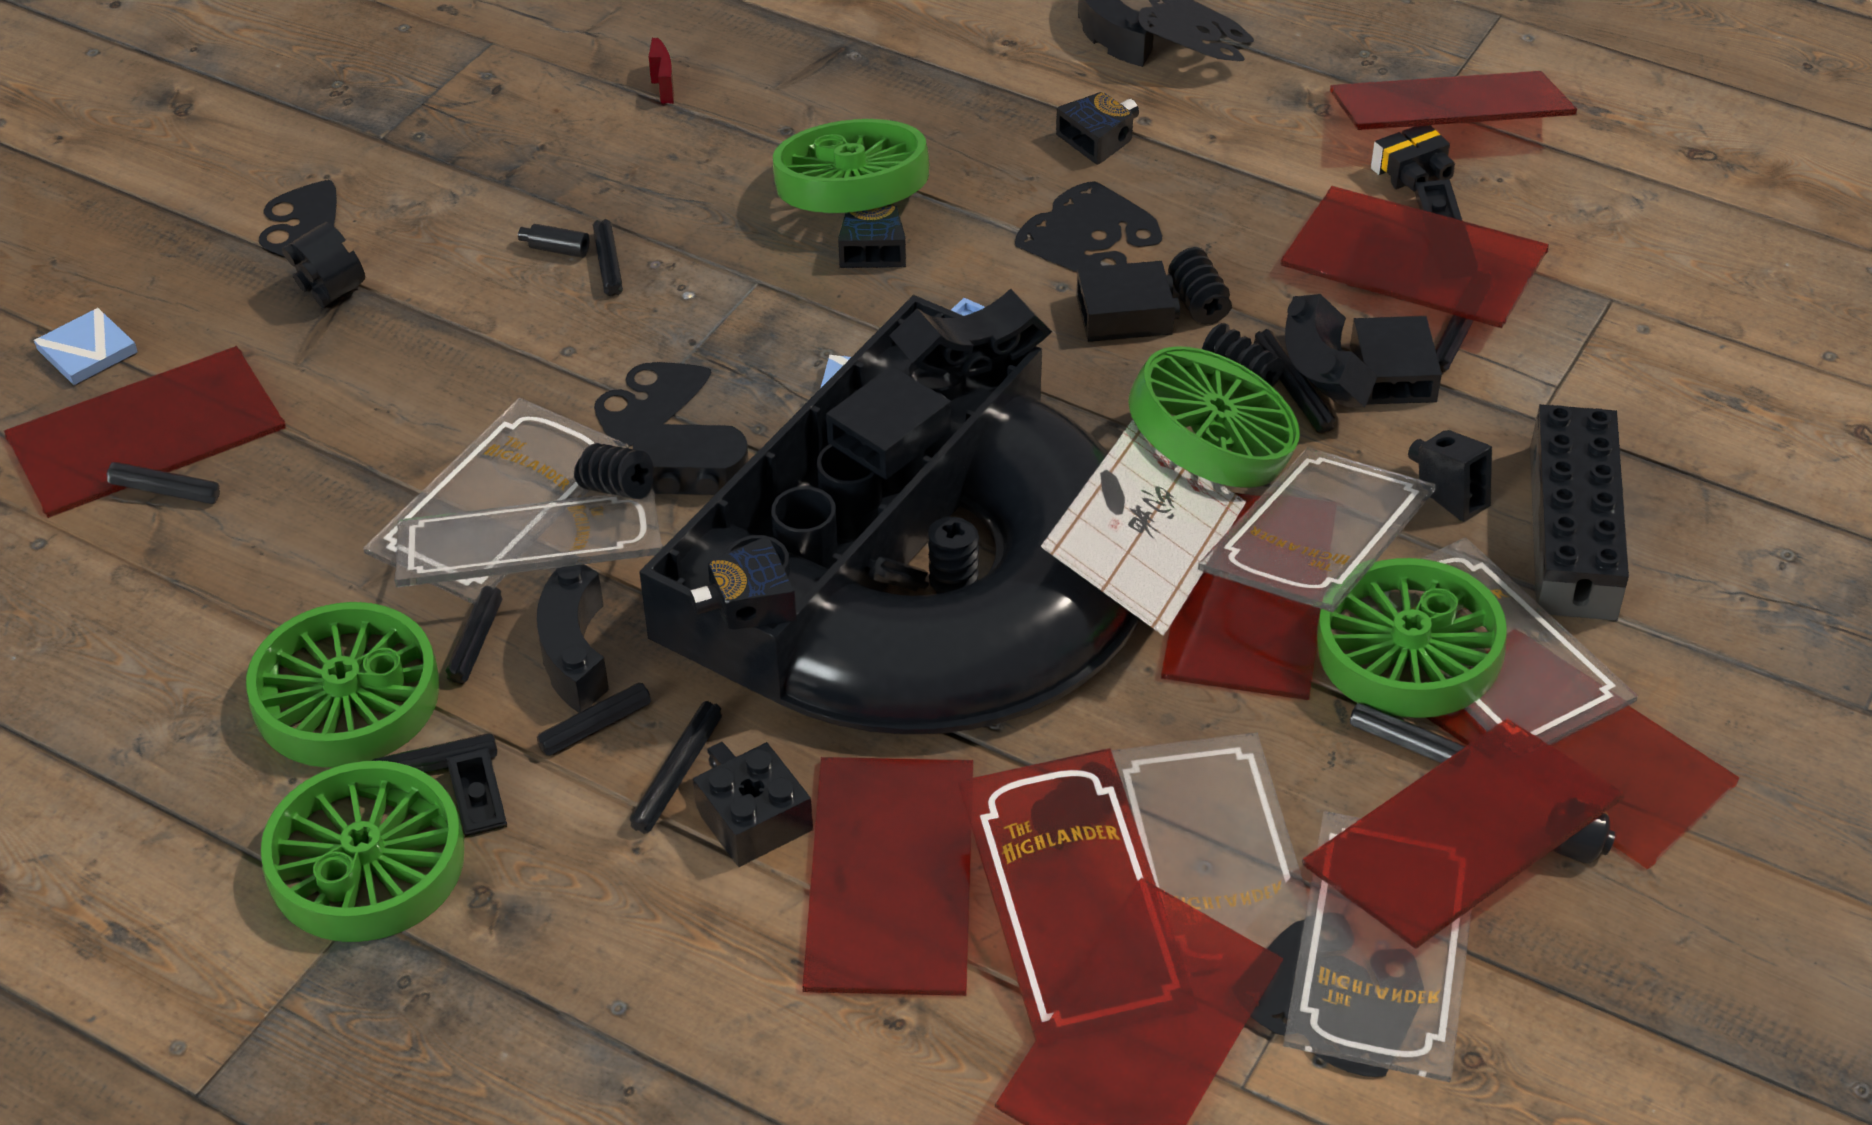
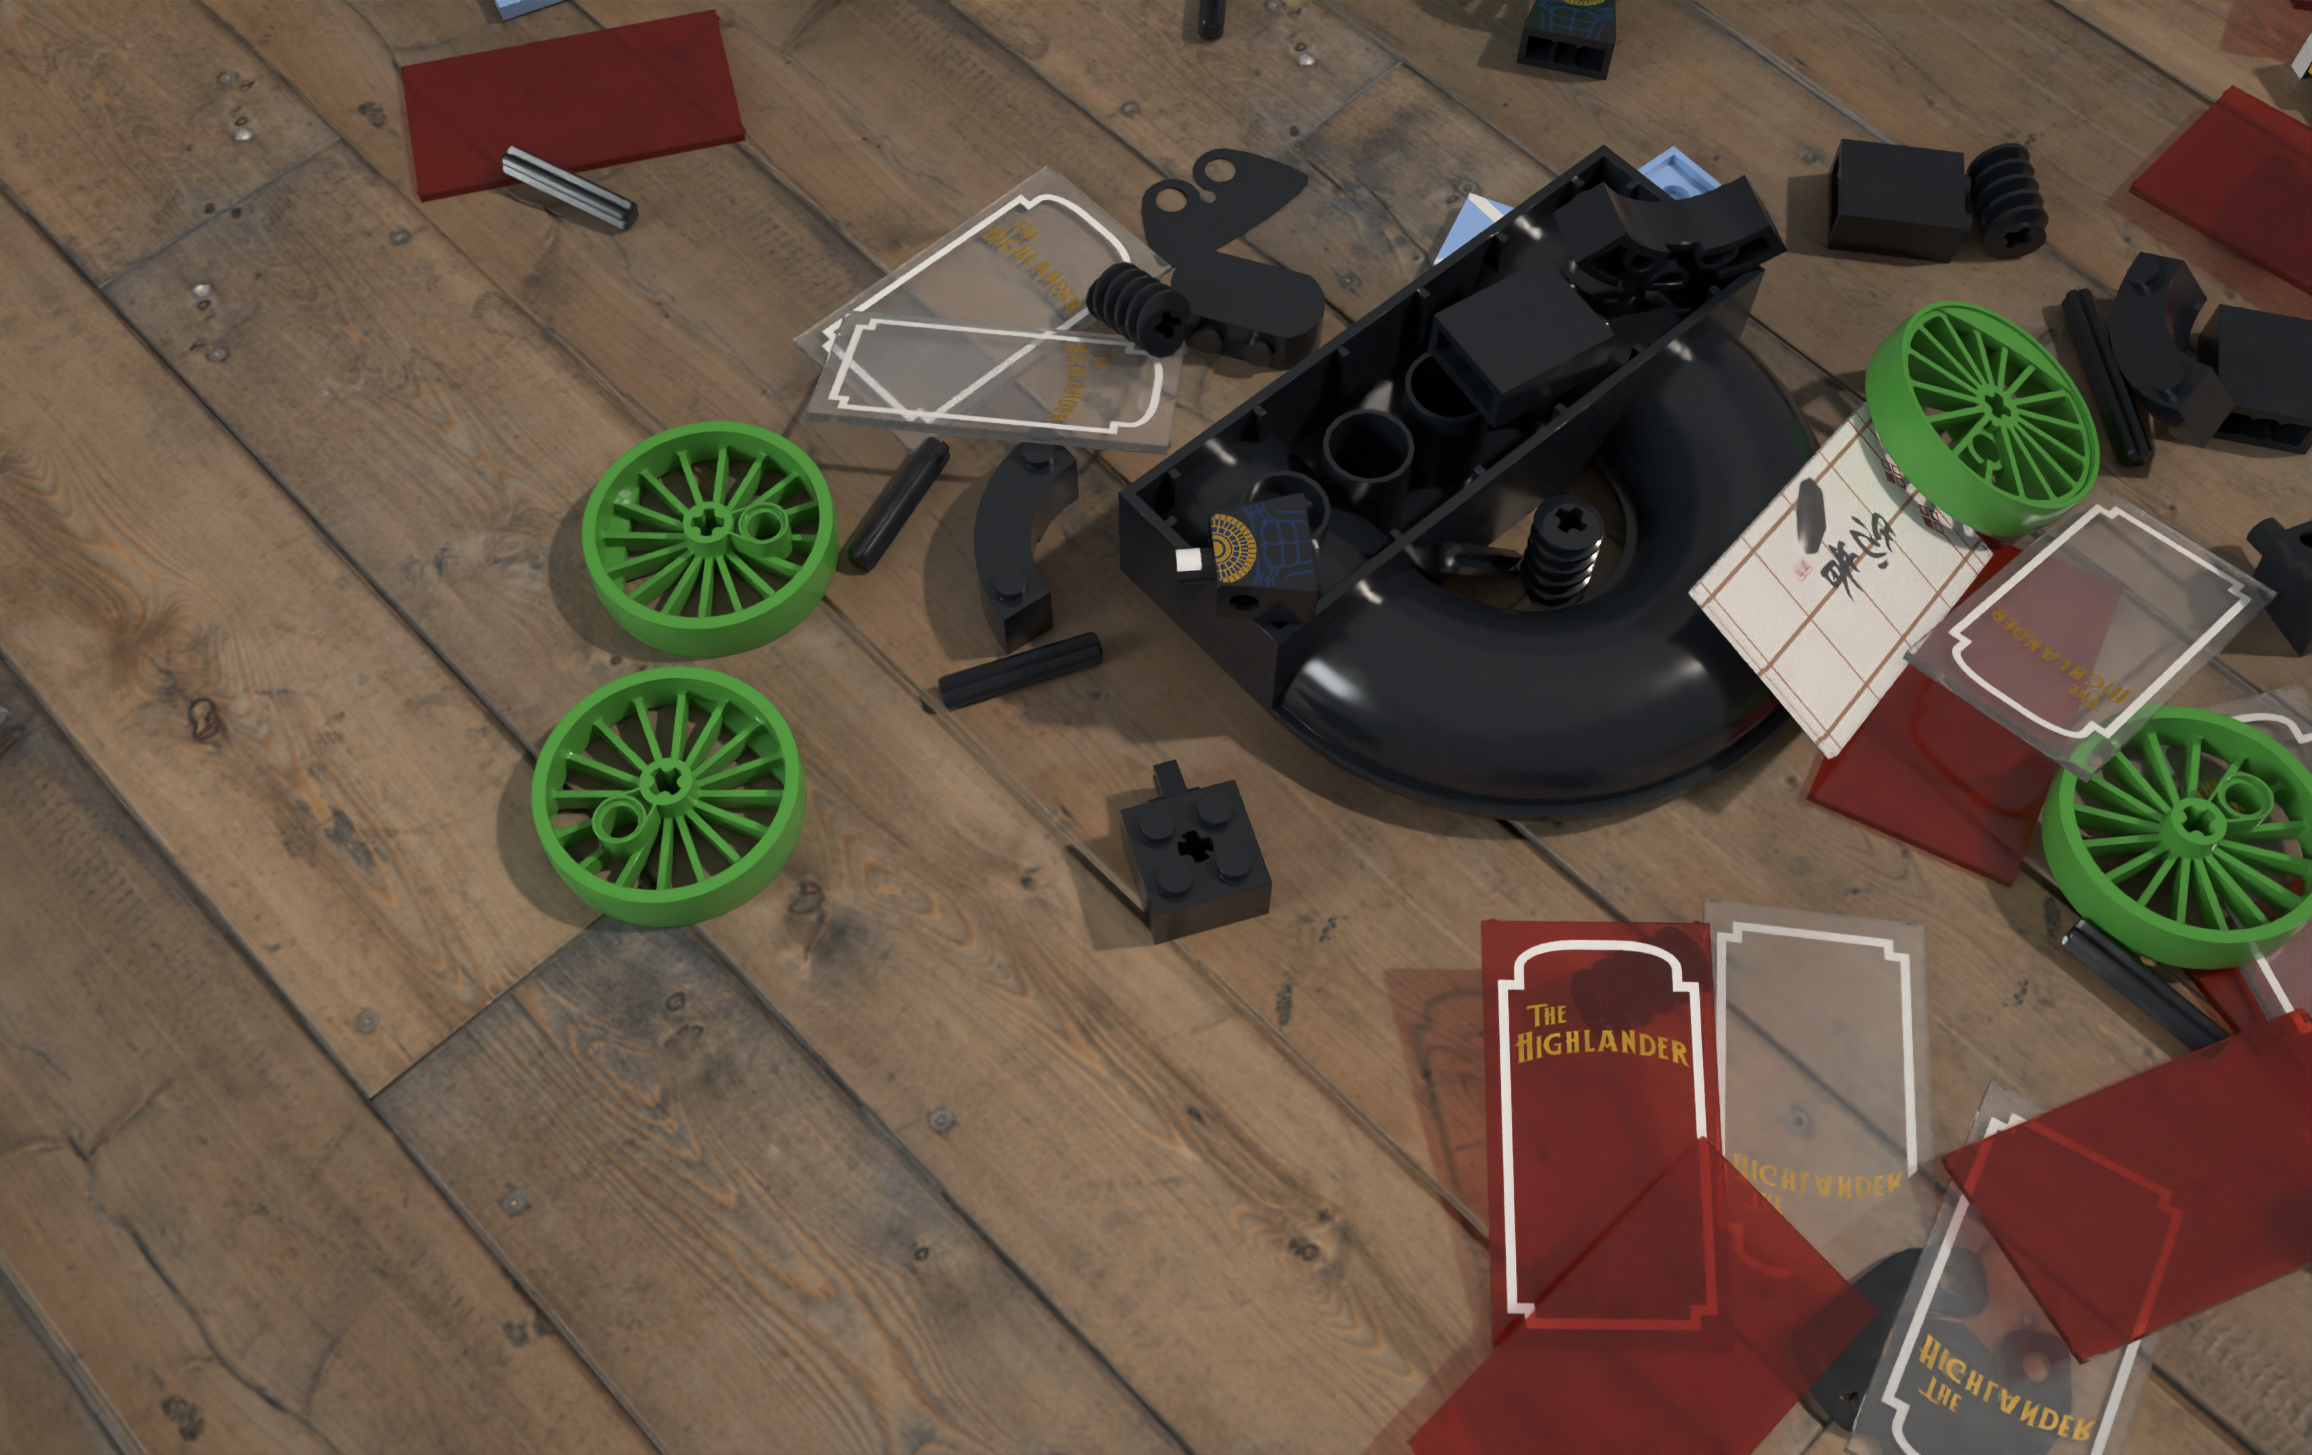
camera: 15 degrees right, 15 degrees up
(434, 757) = (808, 675): black axle -> none
(476, 792) = (840, 743): black slope -> none
(675, 767) = (1108, 772): black axle -> none
(889, 878) = (1354, 1020): clear red piece -> none
(1071, 227) = (1848, 64): black piece -> none
(1241, 350) = (2025, 309): black piece -> none

